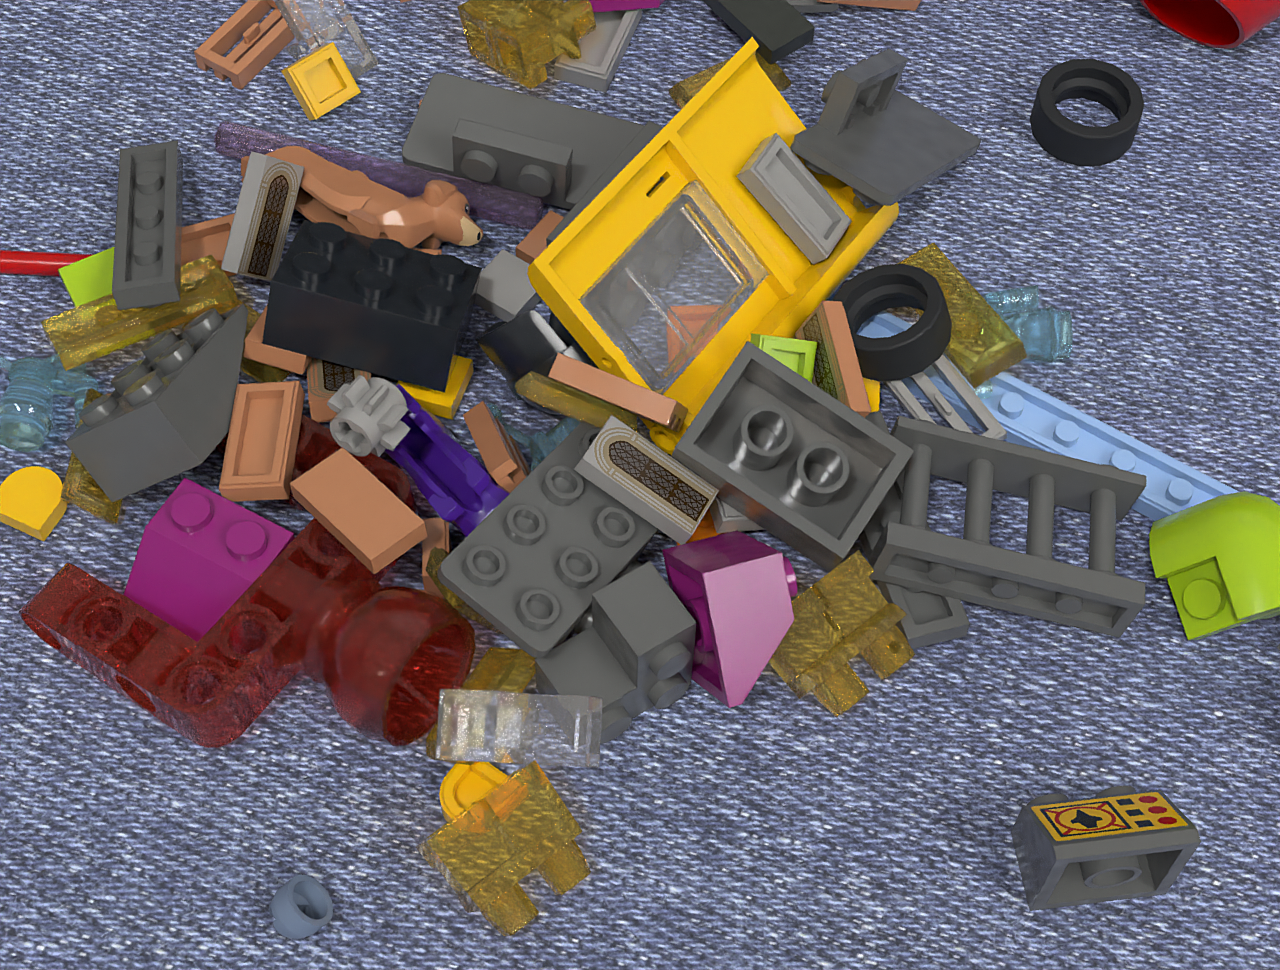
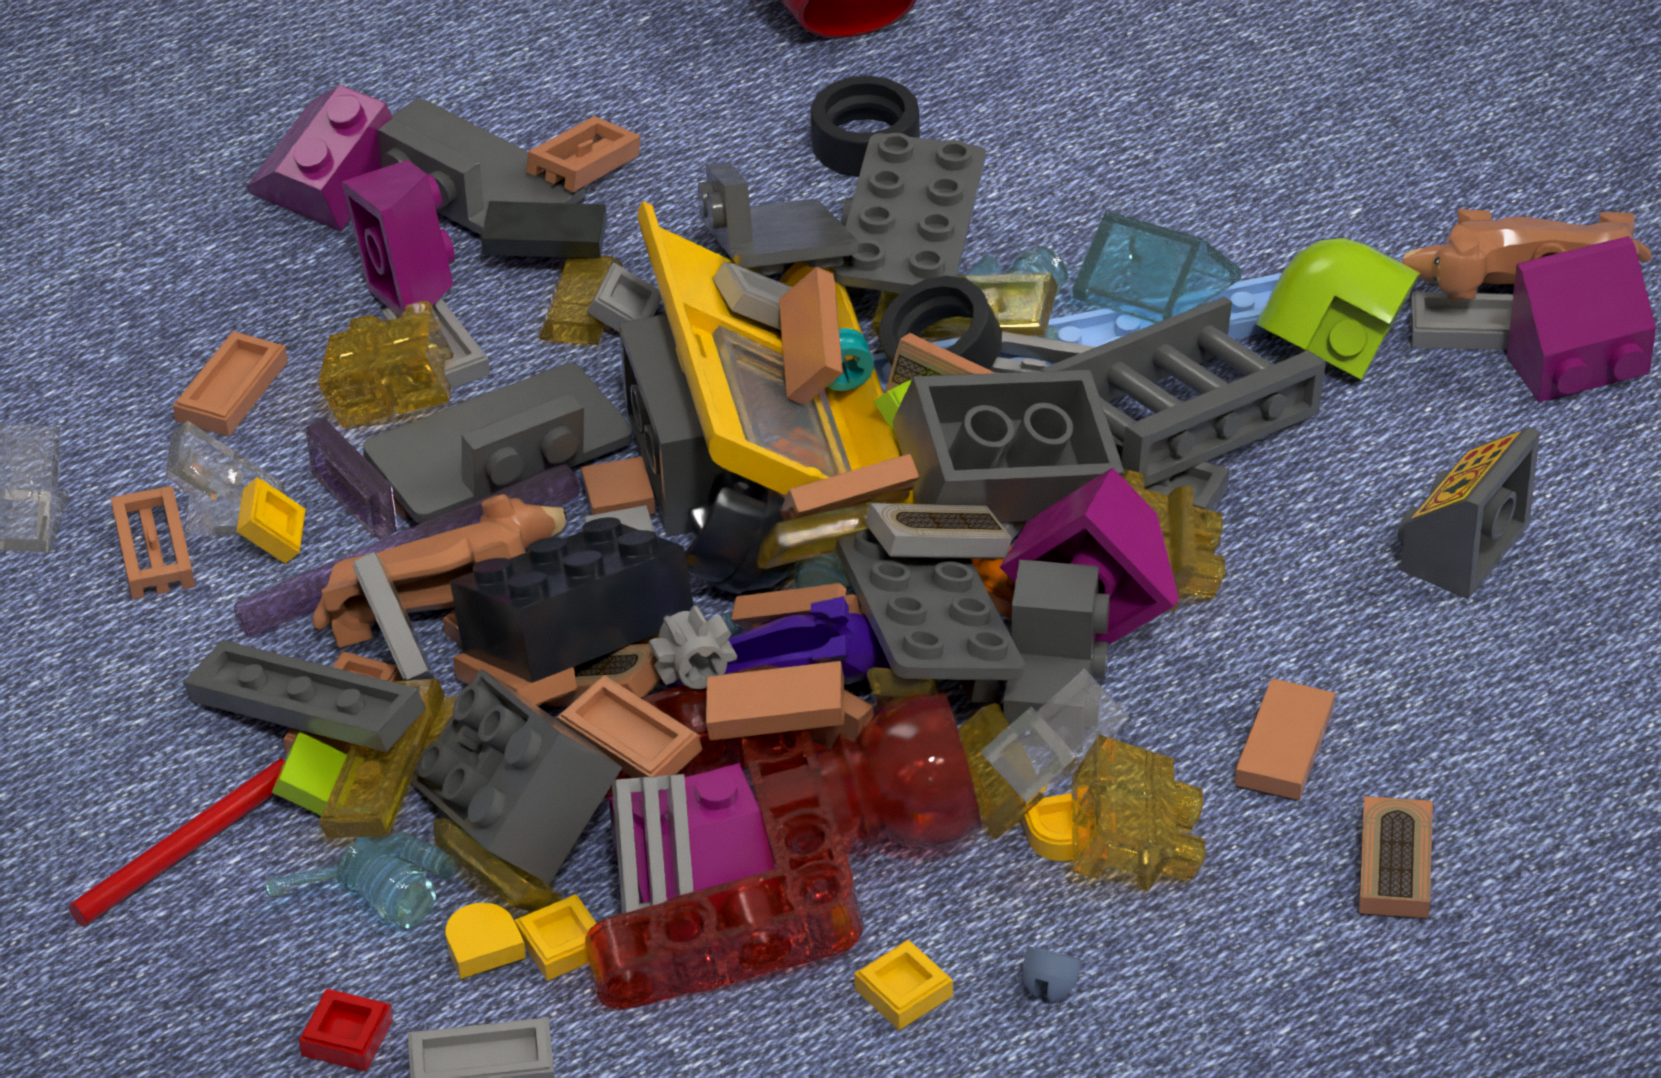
camera: 45 degrees left, 15 degrees down
(76, 541) = (557, 936): none -> yellow tile
(132, 527) = (678, 835): none -> light grey tile
(210, 811) = (903, 984): none -> yellow tile
(402, 93) = (351, 479): none -> clear purple tile
(721, 891) = (1285, 739): none -> nougat tile
(763, 243) = (810, 336): none -> nougat tile
(780, 281) = (860, 367): none -> teal bush
(999, 207) = (909, 212): none -> dark grey bracket
(1130, 407) = (1150, 270): none -> clear light blue slope

